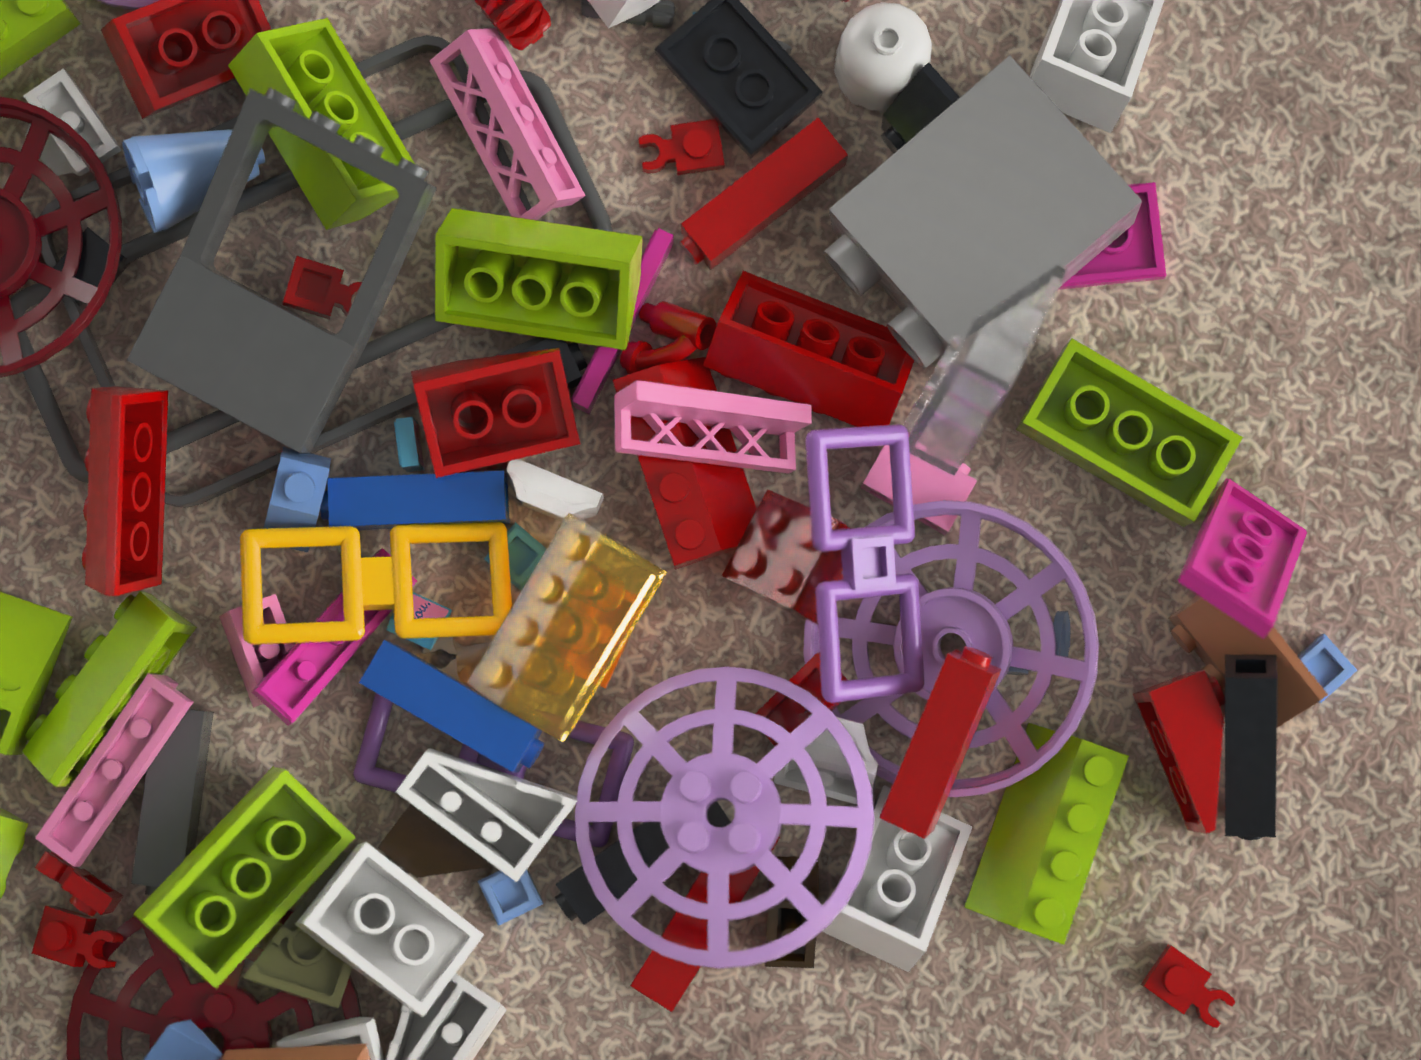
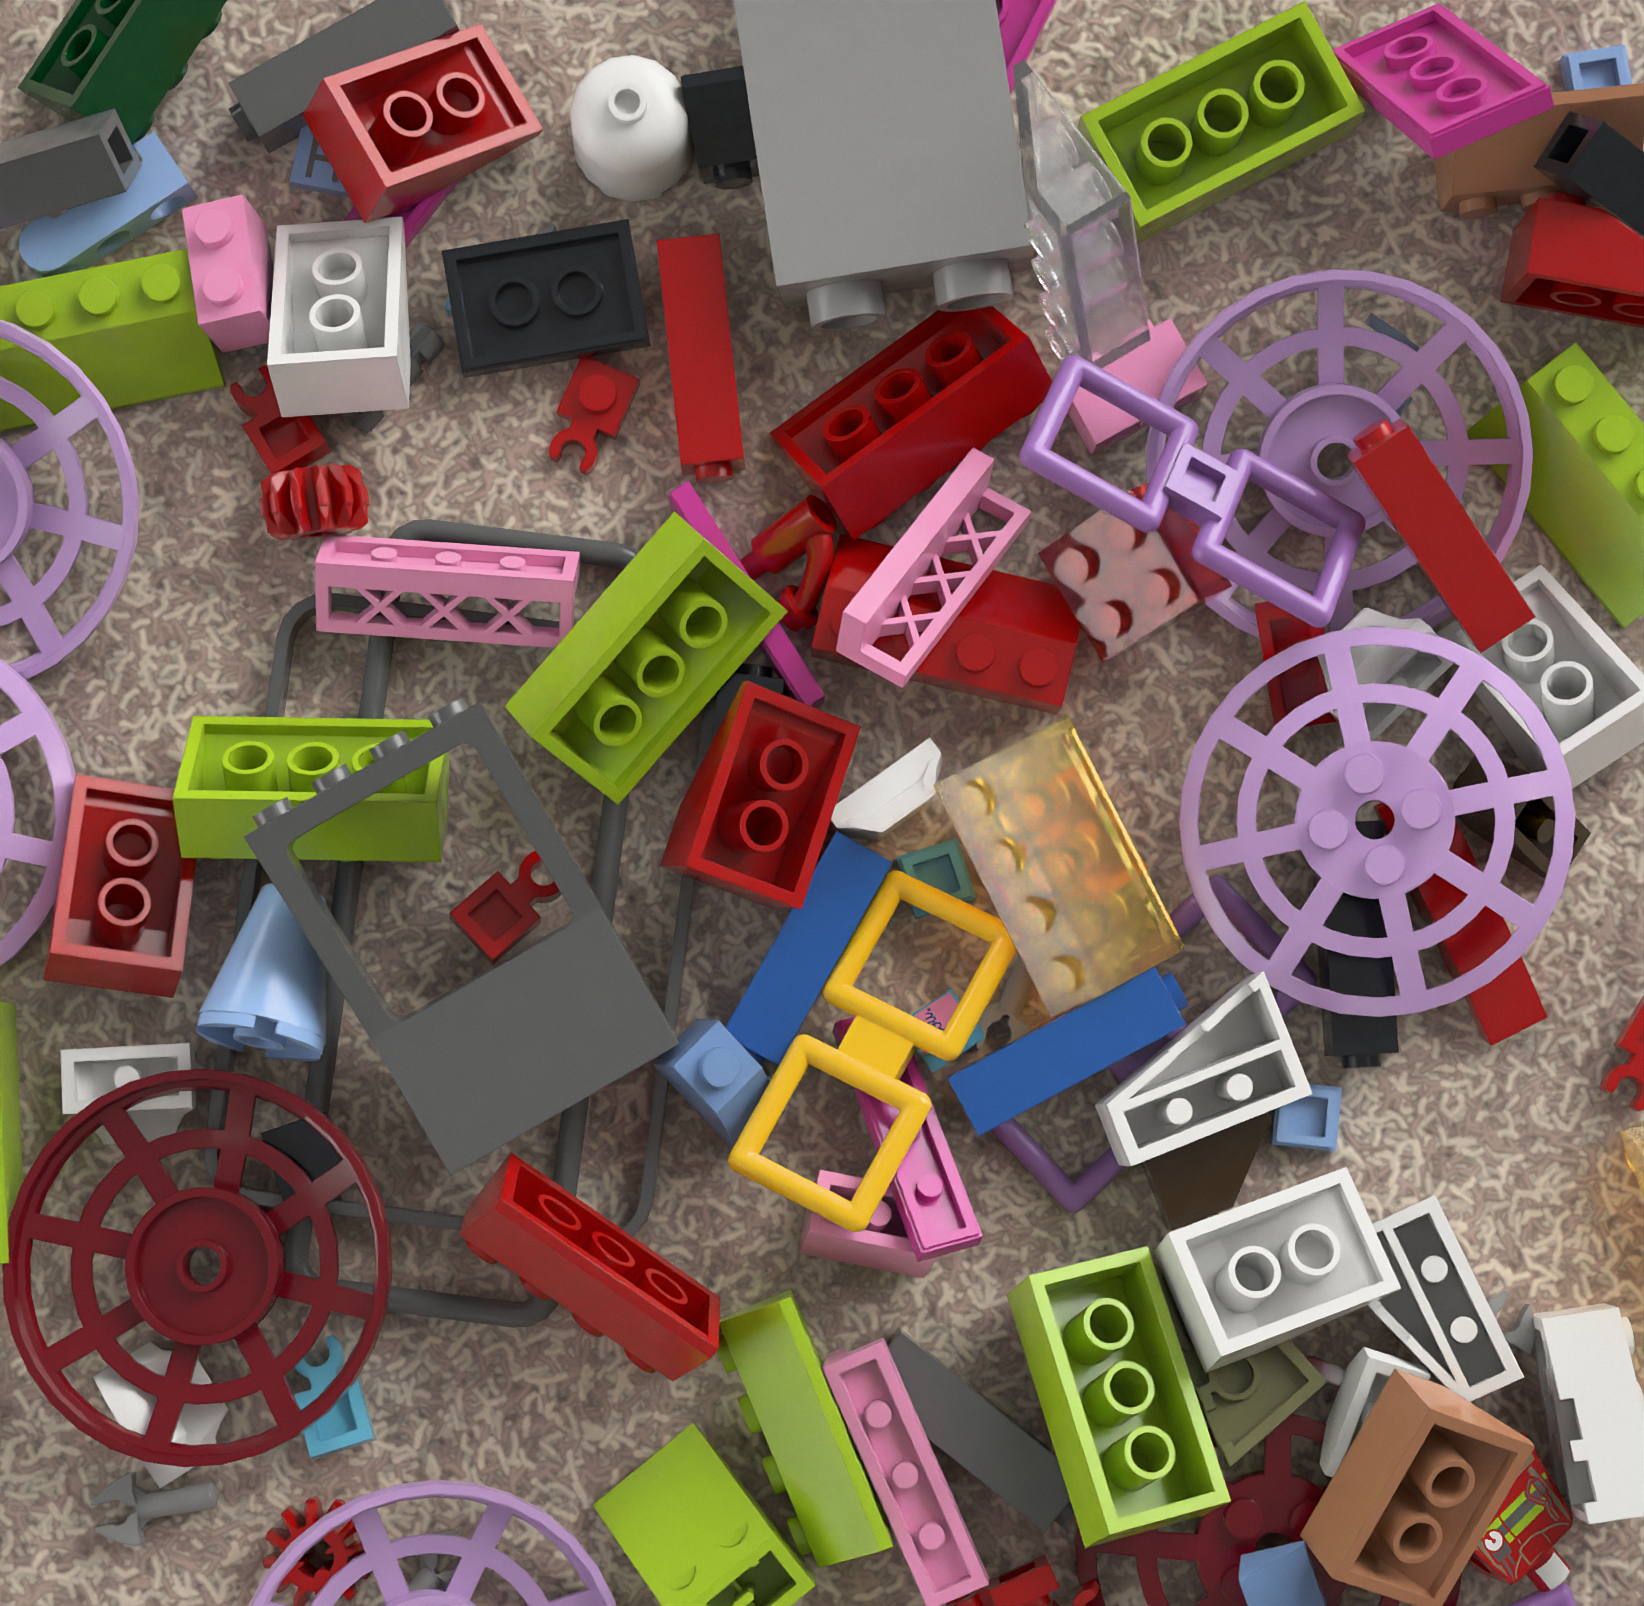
camera: 60 degrees left, 0 degrees up
(408, 444) = (736, 921): medium azure tile -> none

